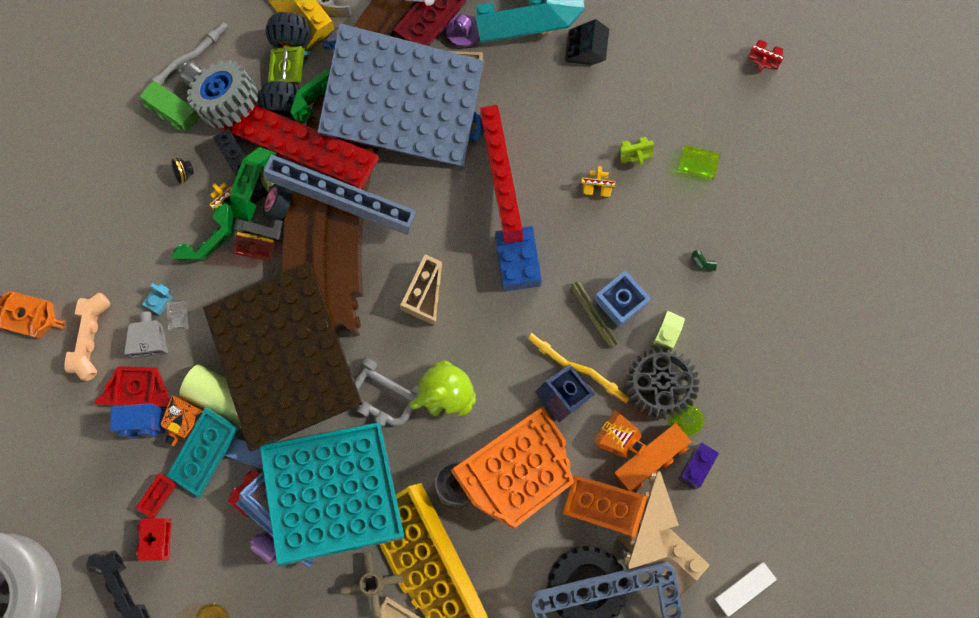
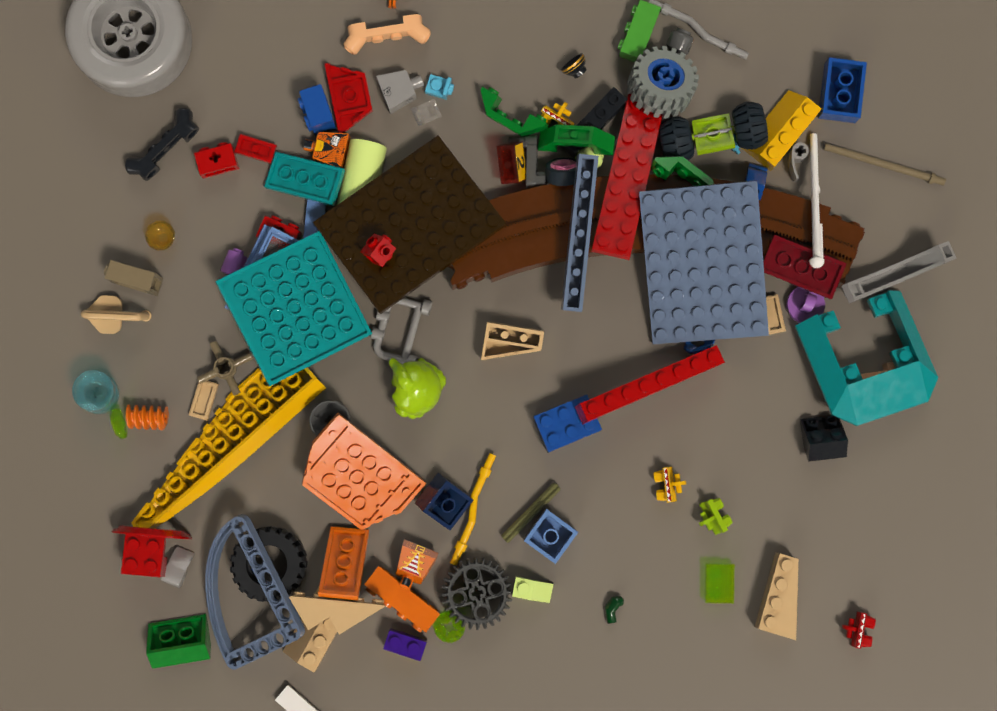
camera: 70 degrees right, 10 degrees up
(296, 385) = (378, 249): none -> red brick
(723, 113) = (779, 601): none -> tan wedge

